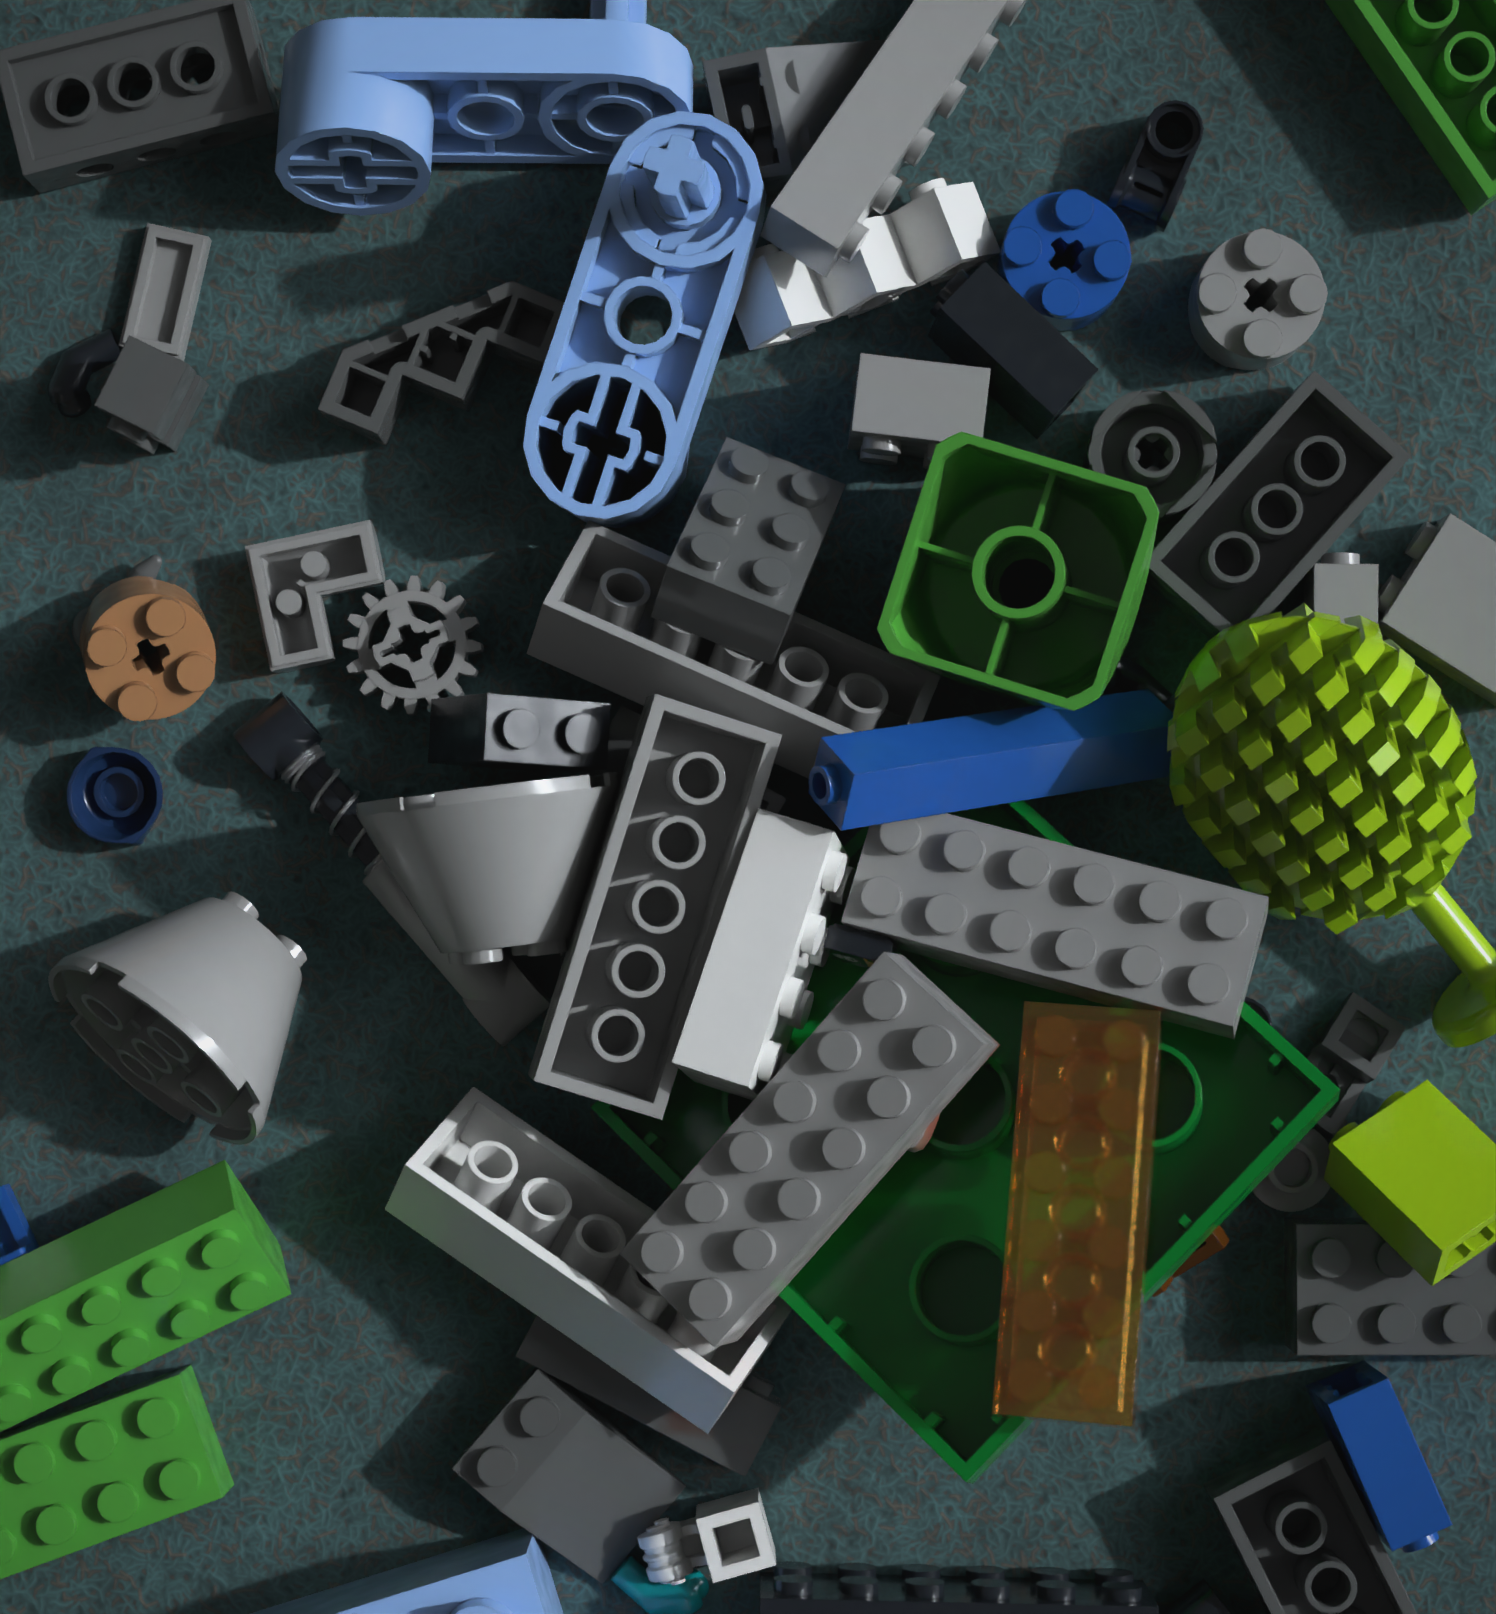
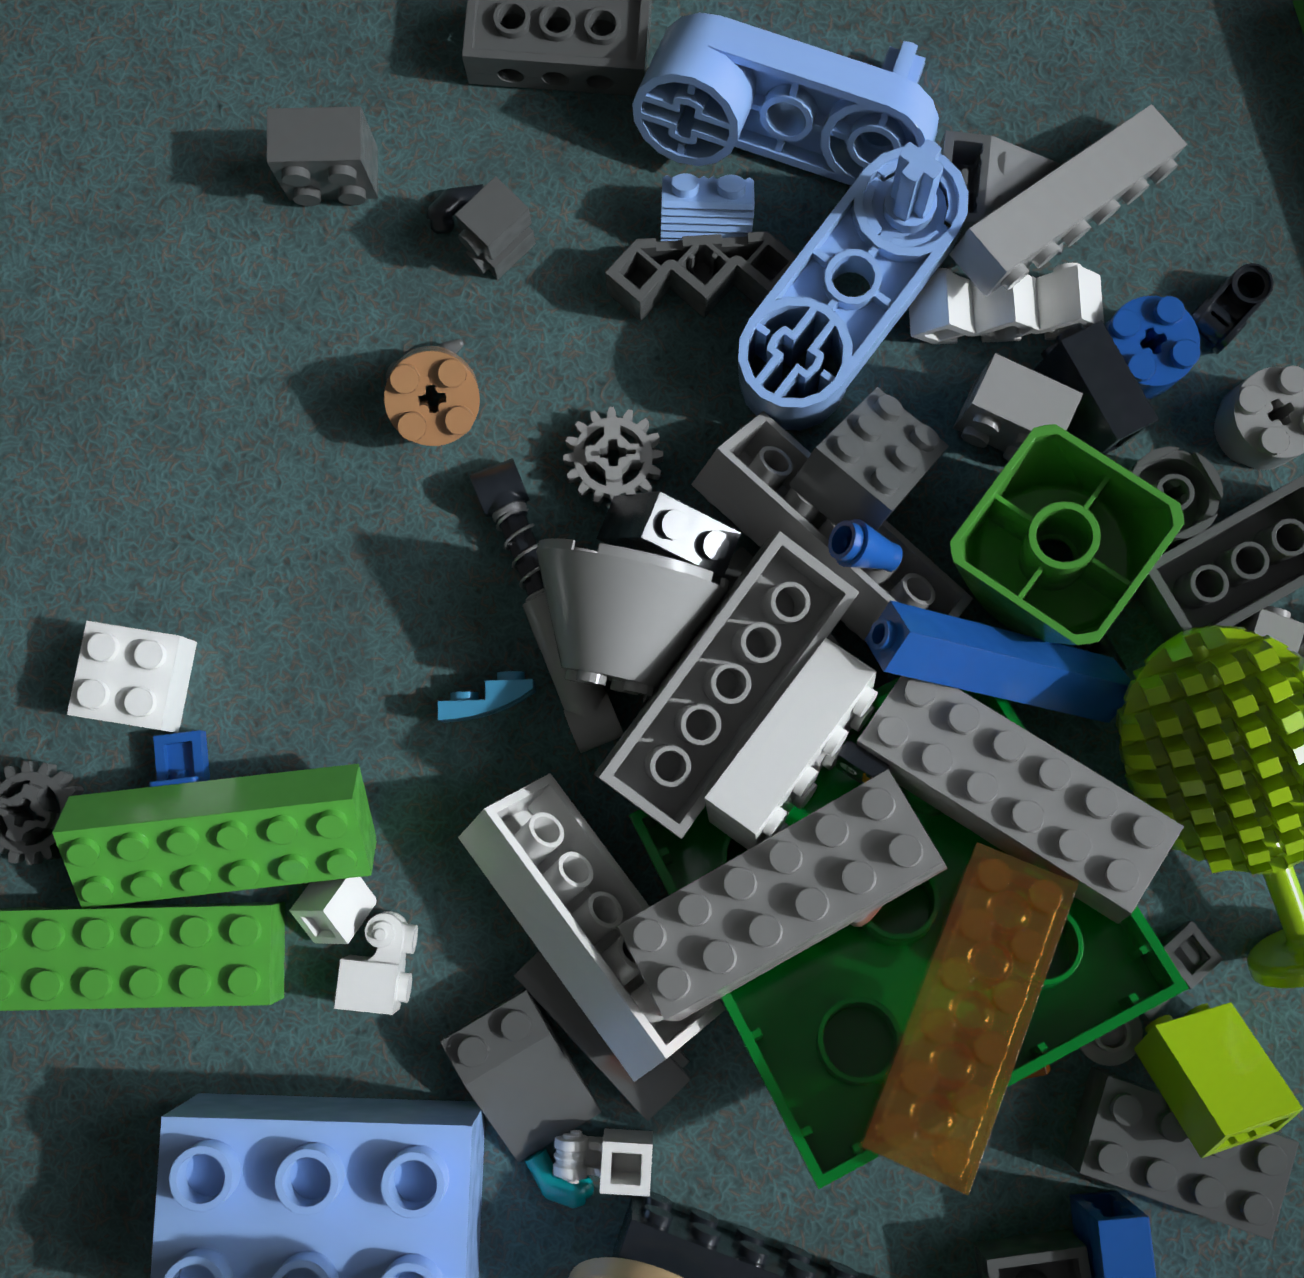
camera: 20 degrees right, 5 degrees down
(115, 795) = (374, 490): dark blue hat -> none
(166, 289) = (534, 165): light grey tile -> none
(190, 1010) = (371, 650): light grey cone -> none
(258, 1352) = (333, 909): none -> white panel
(294, 576) = (548, 385): light grey brick -> none
(349, 1420) = (378, 981): none -> white brick
(381, 1000) = (499, 695): none -> dark azure slope
(421, 270) = (706, 206): none -> light blue brick
(769, 671) = (861, 546): none -> blue cone

